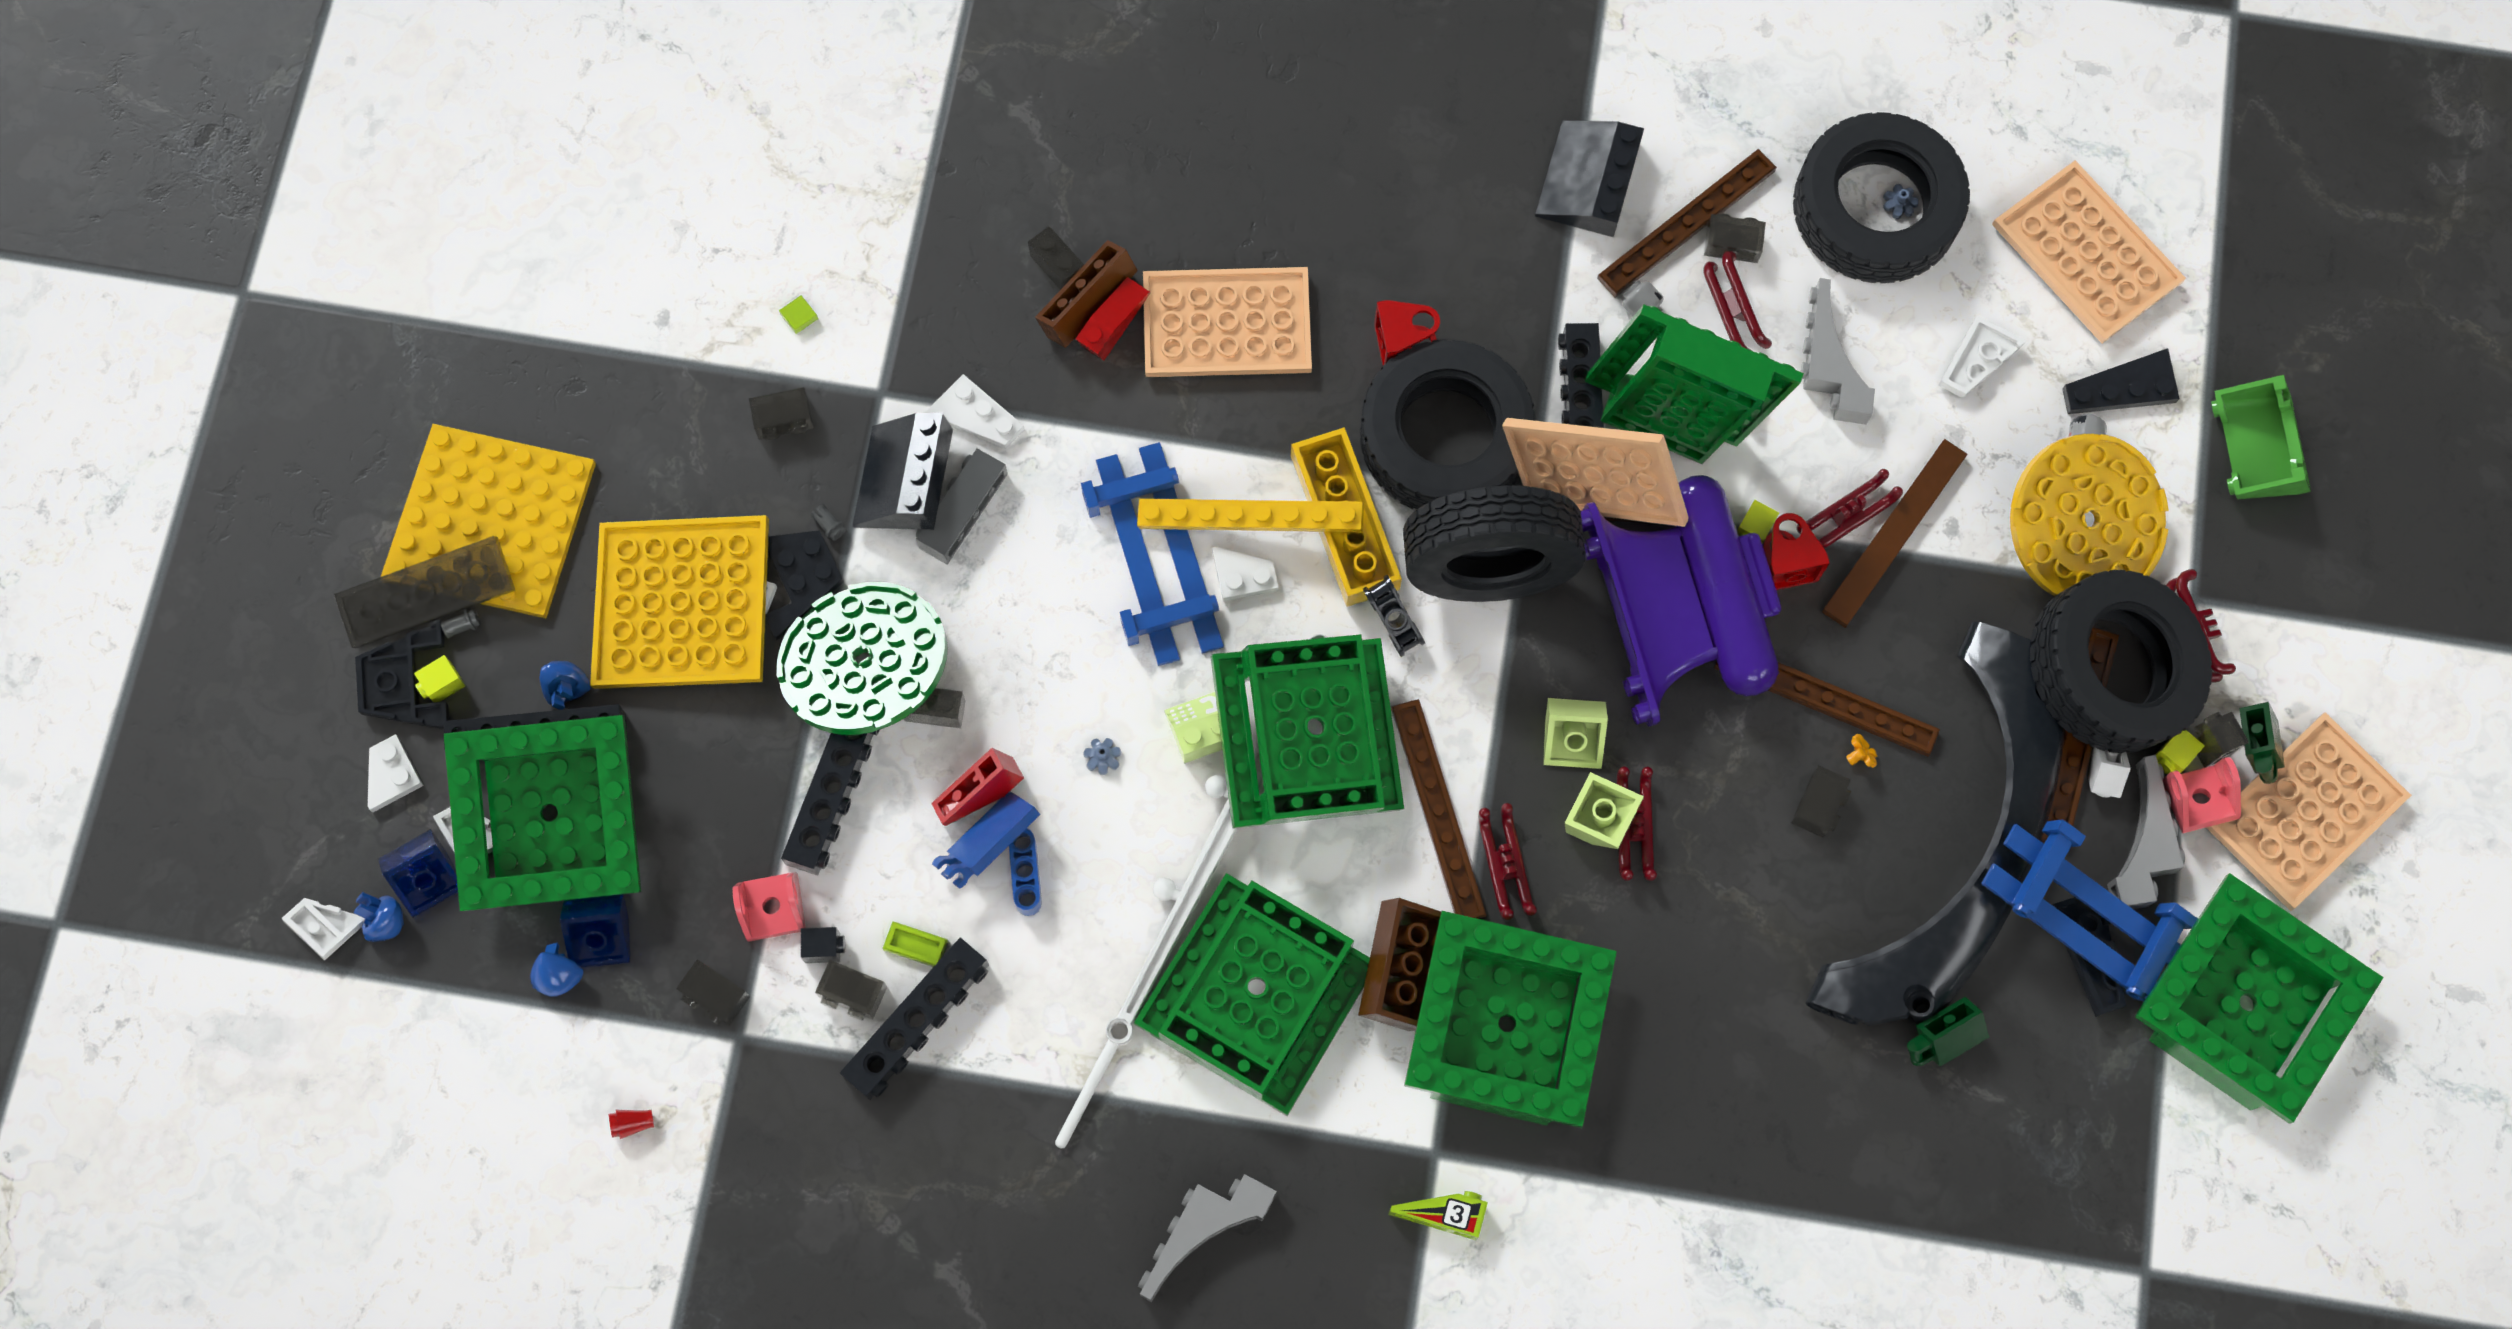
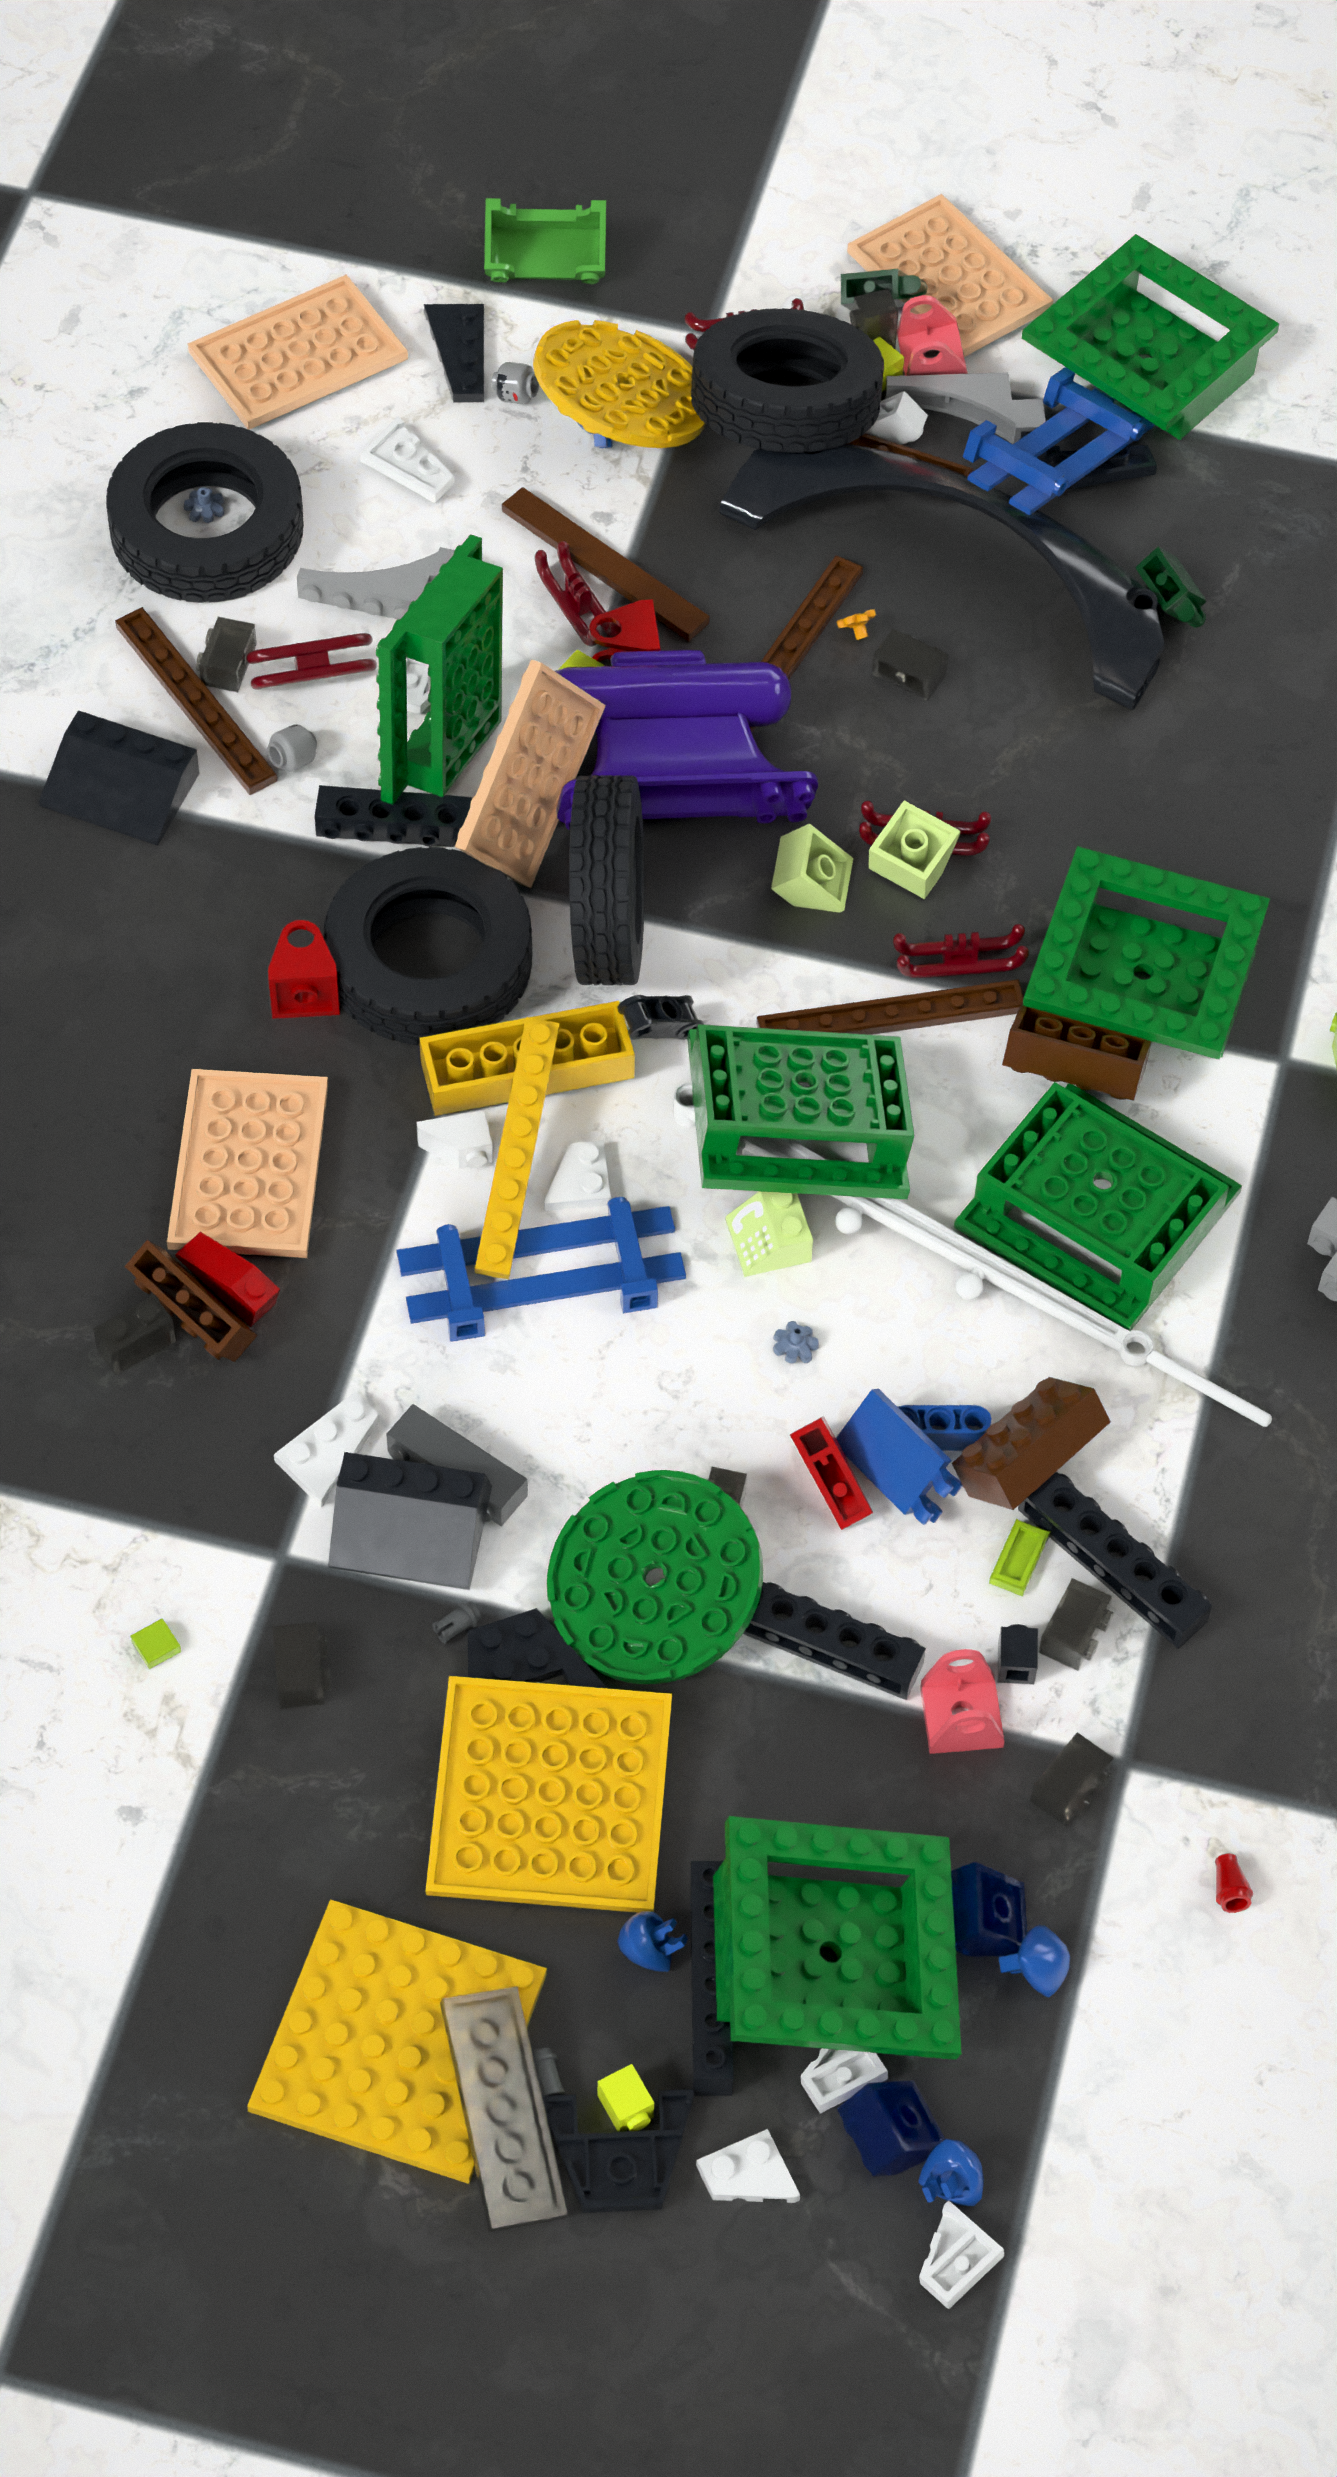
camera: 85 degrees left, 15 degrees down
(1005, 942) = (1031, 1442): none -> reddish brown brick
(1264, 475) = (457, 1139): none -> white slope

